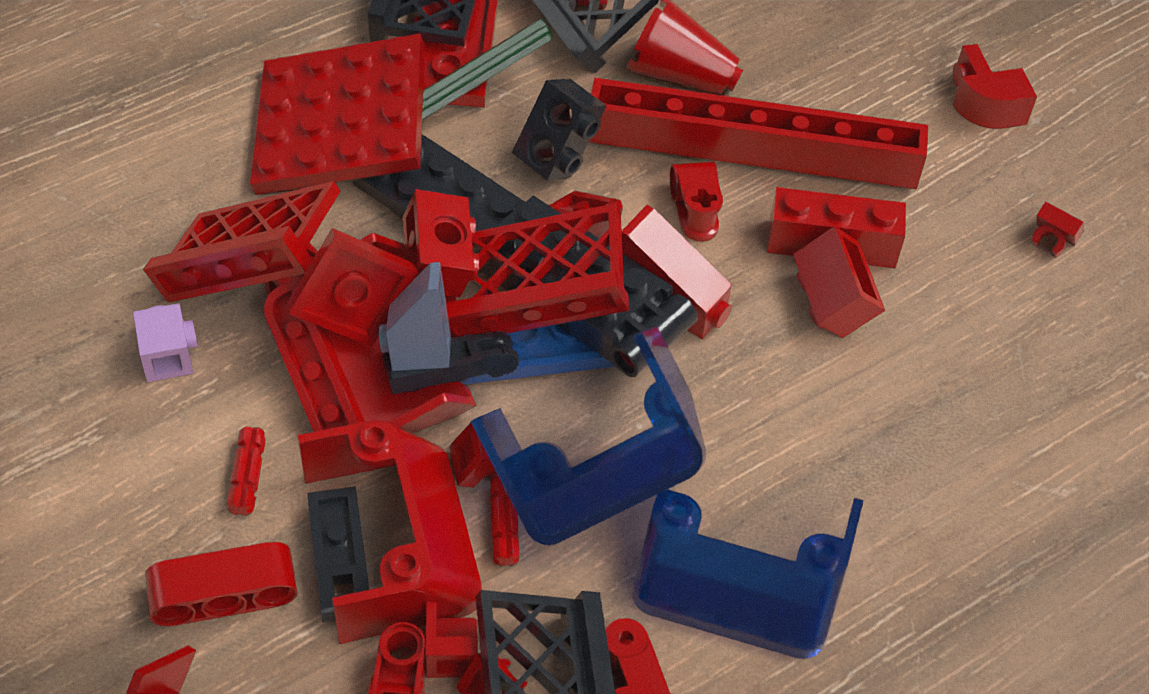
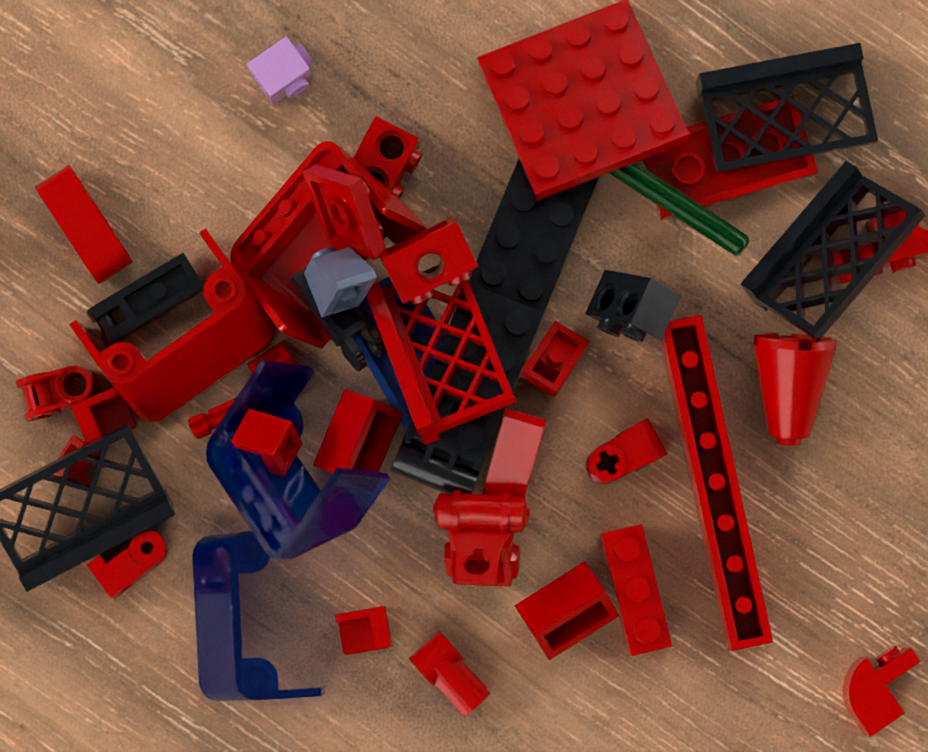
camera: 75 degrees right, 30 degrees up
(243, 244) = (355, 101): red fence -> none
(246, 471) = (193, 193): red axle -> none
(552, 459) = (269, 437): none -> red panel
(588, 397) = (358, 434): none -> red brick
(742, 316) = (481, 536): none -> red piece
(795, 466) = (364, 630): none -> red panel
(858, 412) = (444, 668): none -> red piece

